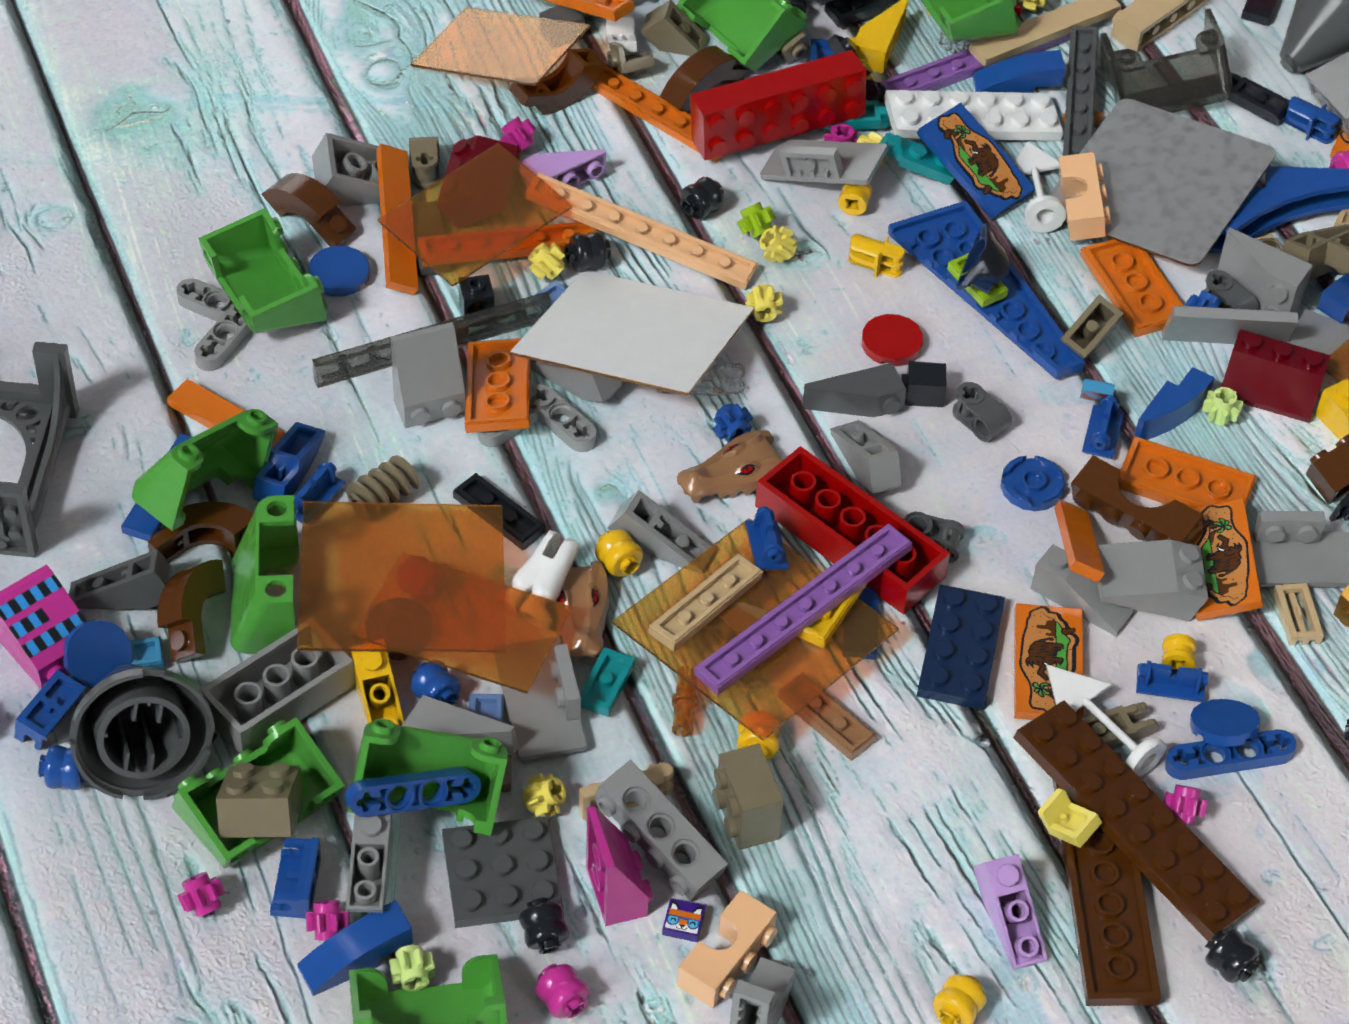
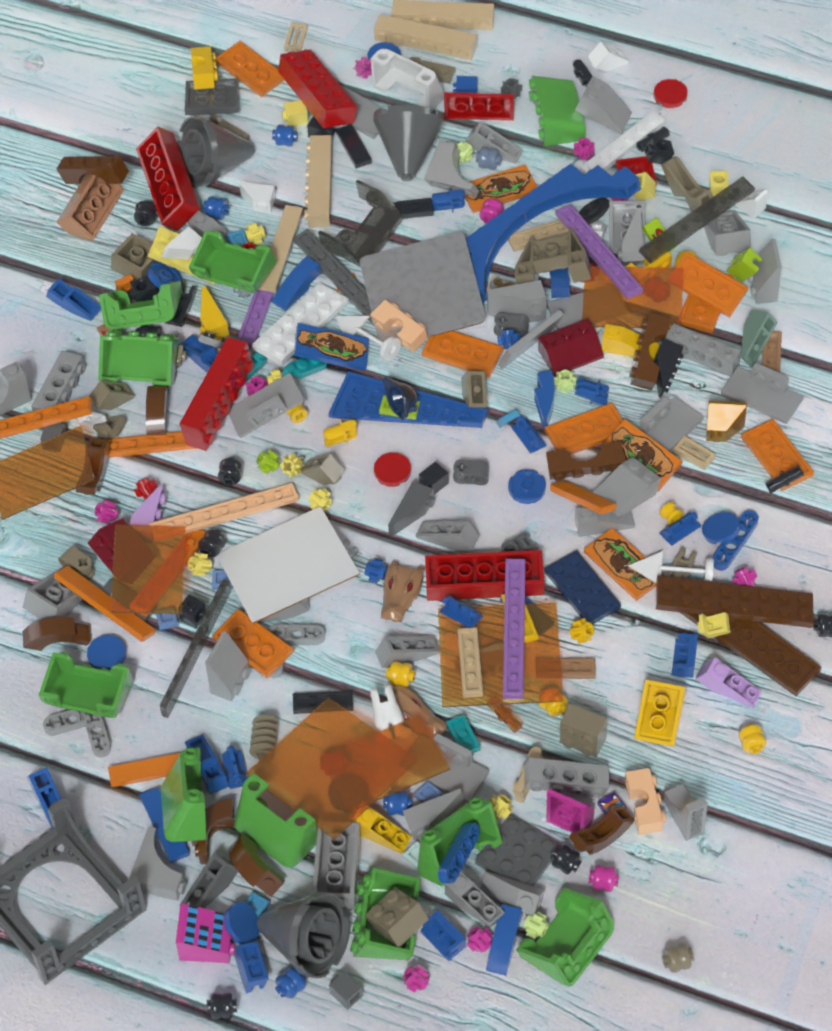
camera: 40 degrees left, 5 degrees up
(85, 516) = (153, 874): none -> light grey arch
(92, 349) = (44, 790): none -> blue slope
(111, 833) = (345, 990): none -> dark grey brick
(433, 908) = (512, 892): none -> light grey slope
(442, 292) = (167, 621): none -> medium blue tile
(589, 140) = (145, 487): none -> red gear
(626, 939) = (604, 832): none -> reddish brown arch
(808, 277) = (323, 469): none -> dark tan slope
(878, 865) = (660, 713): none -> yellow slope
(895, 688) = (581, 631): none -> yellow gear
(996, 830) = (684, 655): none -> blue hinge
(1243, 441) = (592, 391): none -> blue arm

